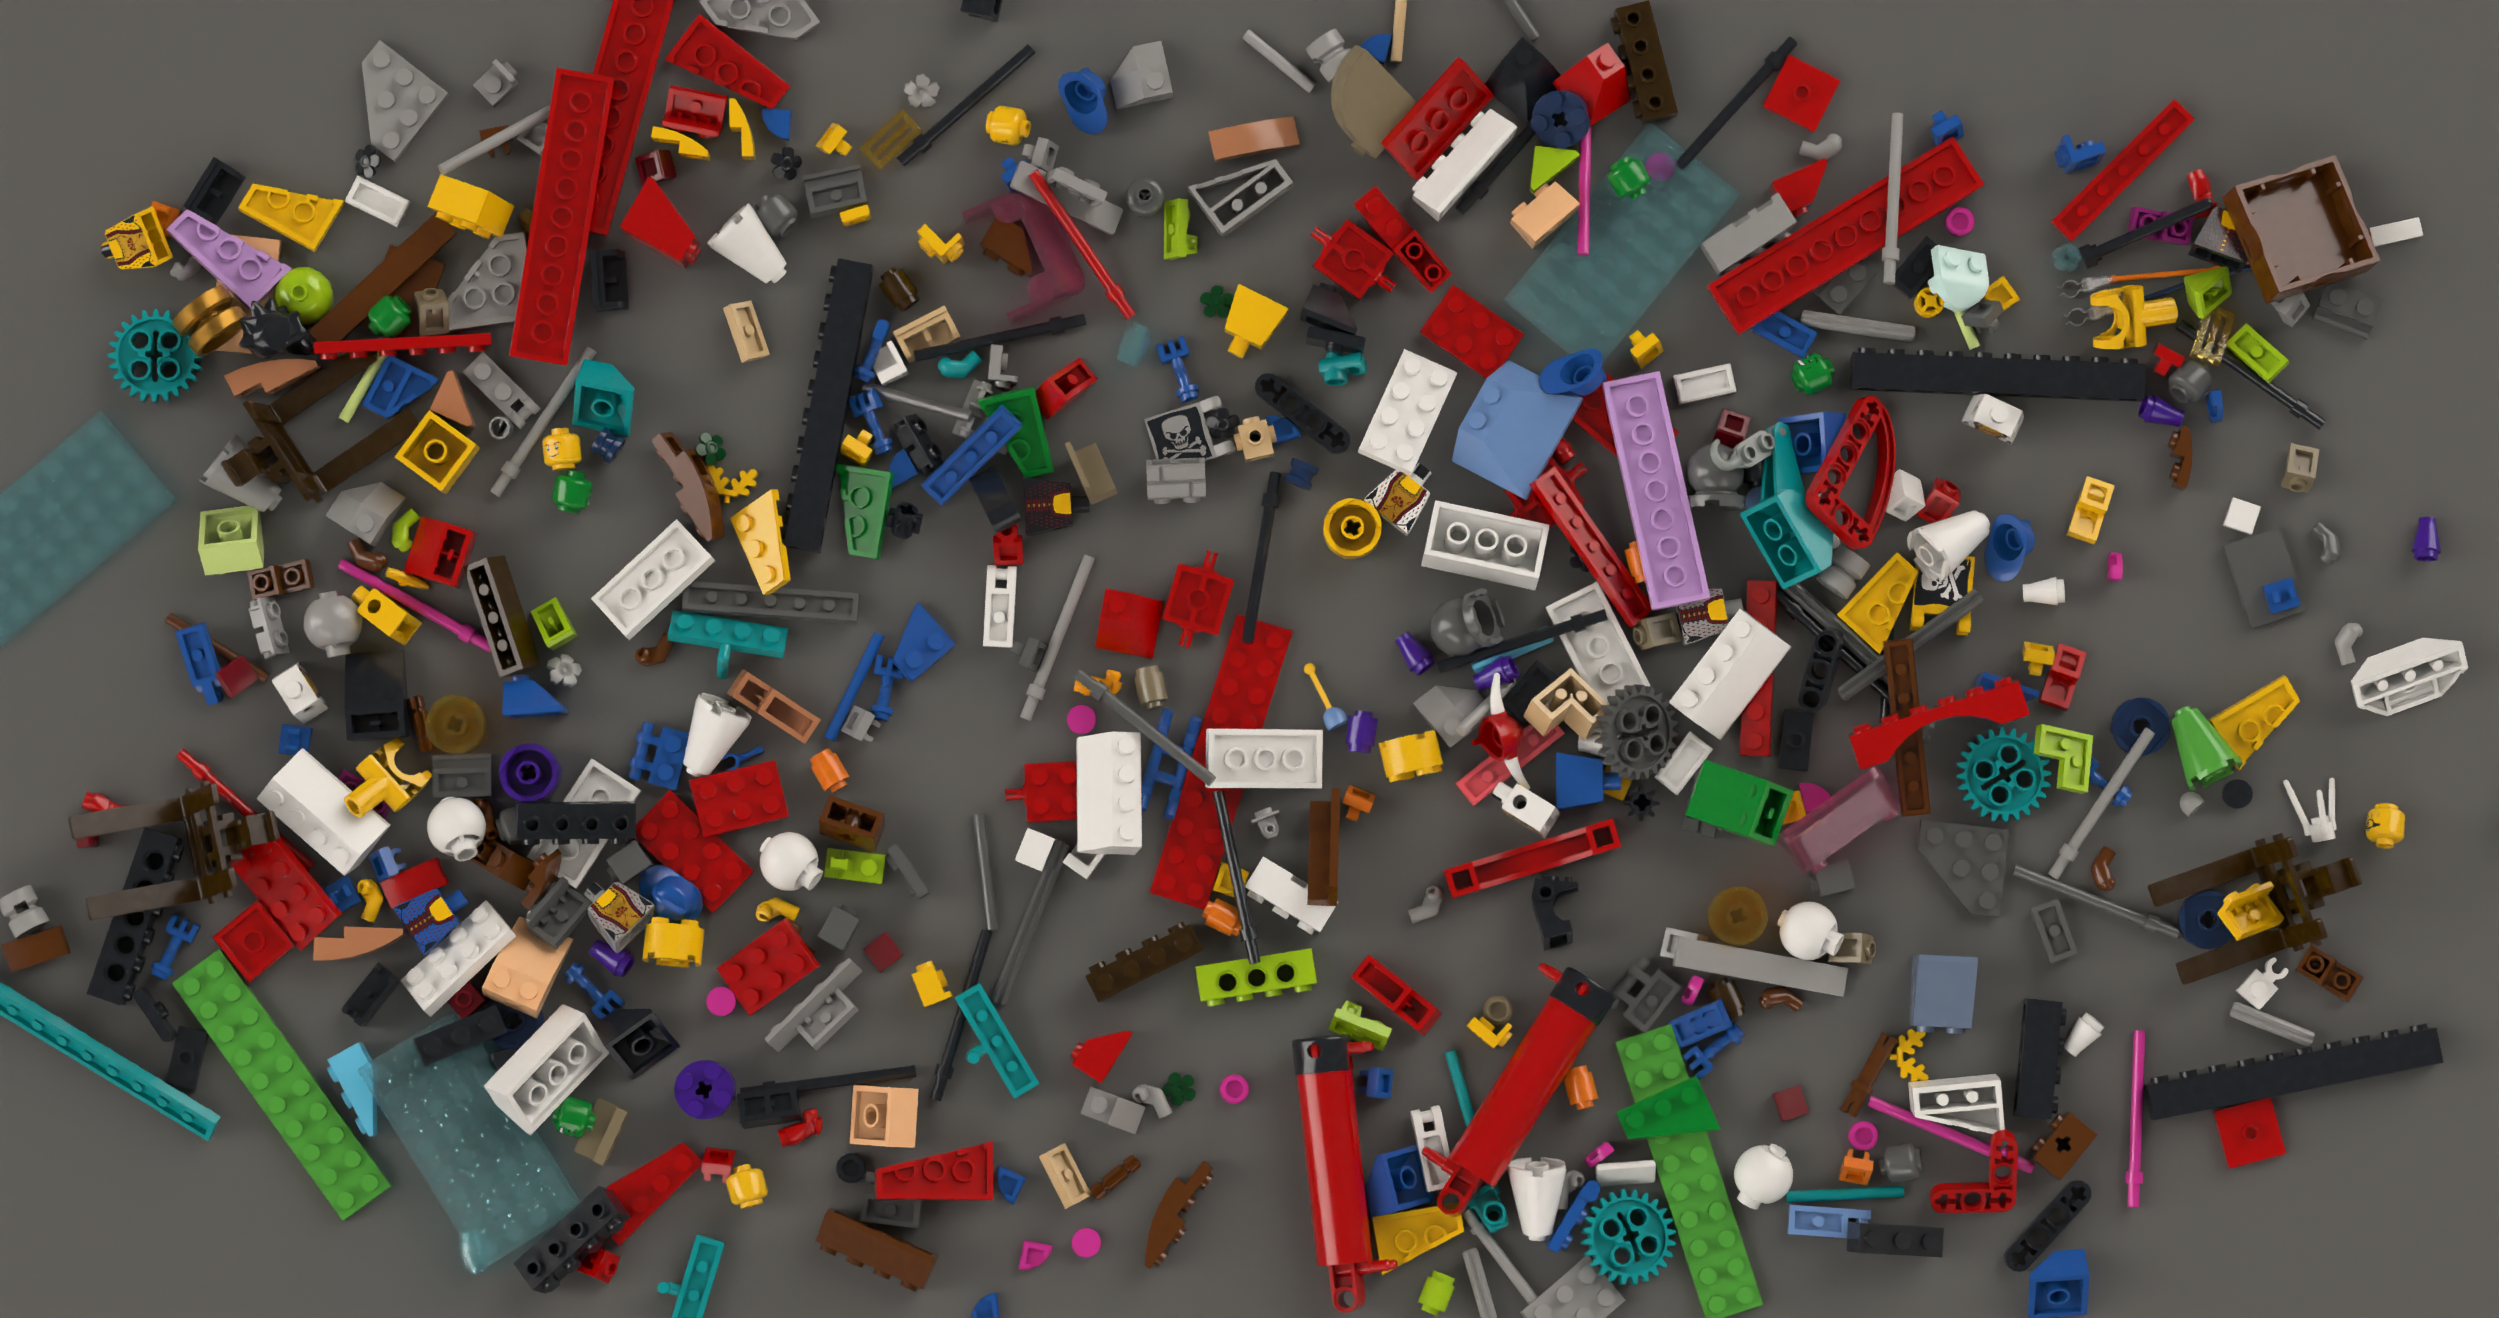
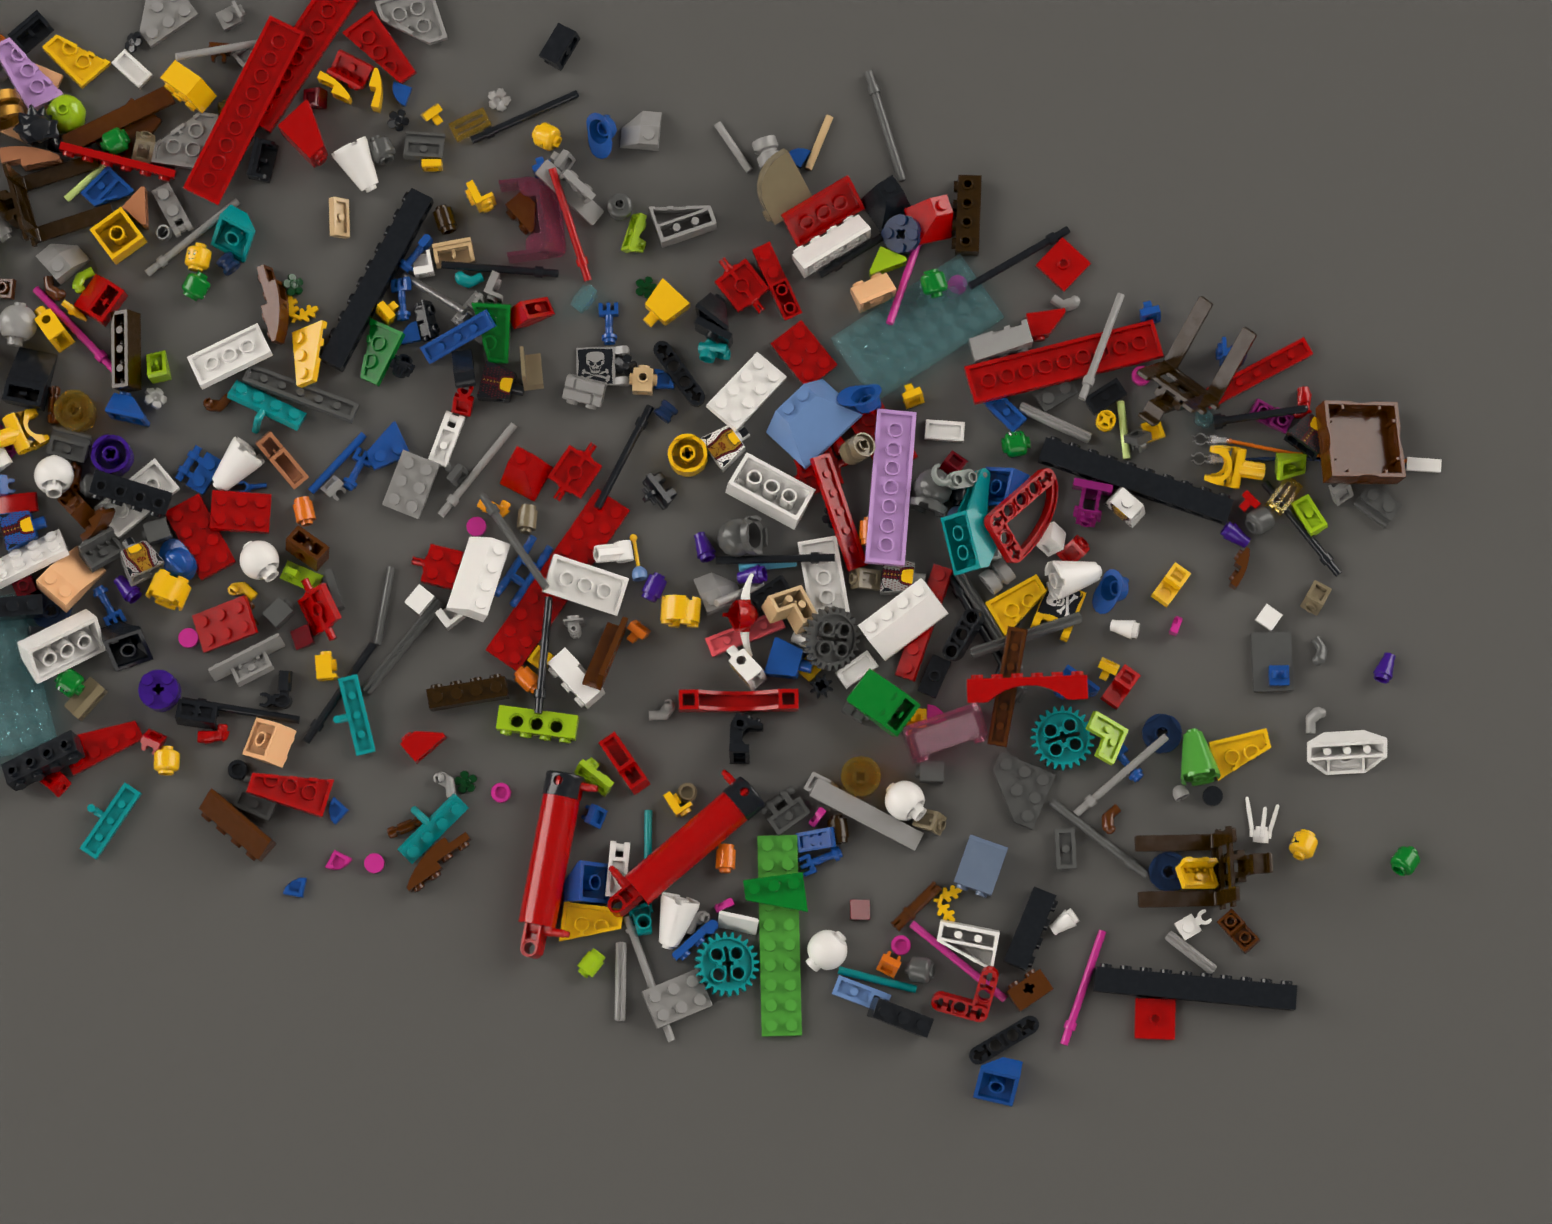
camera: 20 degrees right, 5 degrees down
(884, 1048) = (284, 686): none -> black bar
(896, 906) = (319, 609): none -> red plate
(970, 687) = (411, 484): none -> light grey plate
(1065, 1175) = (373, 815): tan plate -> none
(1112, 1110) = (418, 783): light grey slope -> none
(1152, 1168) = (431, 827): none -> teal plate
(1253, 138) = (701, 190): nougat slope -> none
(1294, 697) = (619, 551): none -> white piece
(1321, 594) = (655, 492): none -> black hips
(1591, 448) = (857, 448): none -> dark tan wheel
(1780, 995) = (873, 837): reddish brown arm -> none
(1941, 410) = (1091, 491): none -> magenta tile
(1958, 277) = (1126, 408): light aqua slope -> none
(2066, 229) = (1164, 400): none -> dark brown piece
(2215, 406) = (1271, 542): blue tile -> none

